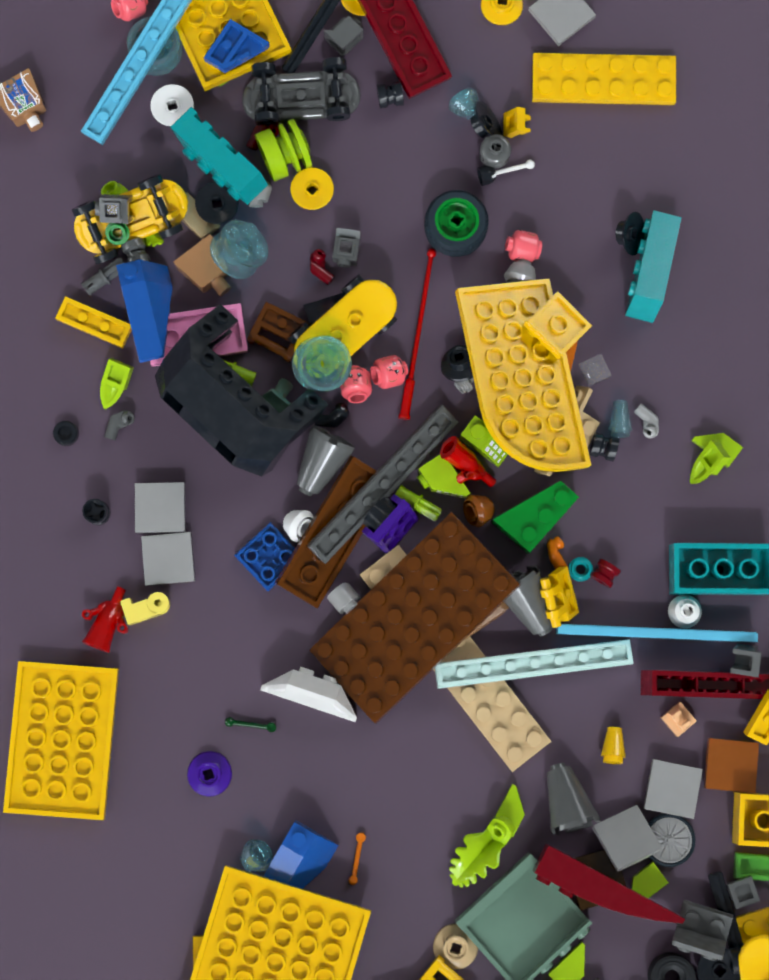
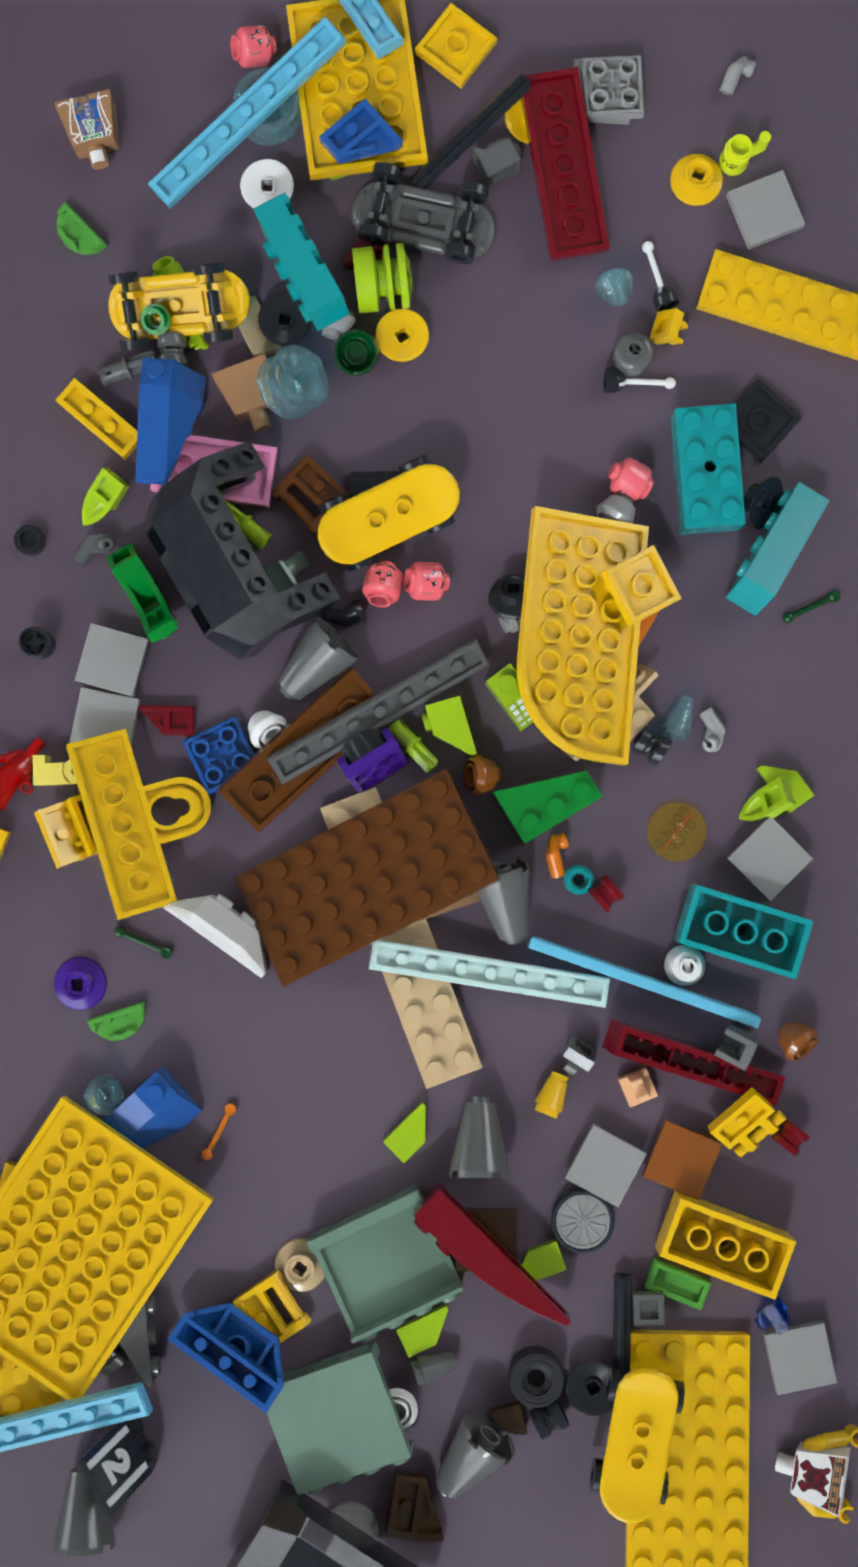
camera: 30 degrees right, 5 degrees up
(32, 184) = (77, 233): none -> bright green tile
(114, 208) = (157, 288): dark grey window -> none
(170, 447) = (143, 592): none -> green arch
(172, 648) = (67, 831): none -> yellow brick
(209, 634) = (123, 823): none -> yellow plate
(220, 540) = (171, 719): none -> dark red tile
(251, 795) = (119, 1023): none -> bright green tile
(280, 212) = (356, 352): none -> dark green hair
(308, 367) = (328, 546): clear light blue wheel -> none
(317, 266) = (381, 432): dark red arm -> none
(343, 598) = (293, 830): light grey plate -> none
(346, 247) = (421, 418): dark grey window -> none
(390, 94) = (529, 249): black wheel -> none
(410, 383) = (447, 601): red piece -> none
(466, 461) = (483, 713): red piece -> none
(467, 212) = (577, 418): wheel -> none
(481, 851) = (361, 1169): lime plant -> none
(485, 121) = (632, 314): black piece -> none
(505, 100) = (664, 296): none -> hinge
(559, 596) = (542, 905): yellow plate -> none
(586, 244) = (704, 498): none -> teal brick
(595, 370) = (669, 651): clear plate -> none
(608, 172) = (763, 420): none -> black tile
(623, 707) = (578, 1055): none -> dark grey tile
(627, 838) = (534, 1206): light grey tile -> none
(645, 508) = (676, 832): none -> clear yellow piece
(703, 930) = (588, 1340): dark grey bracket -> none
(708, 290) = (832, 597): none -> dark green hinge
(724, 507) = (769, 858): none -> light grey tile

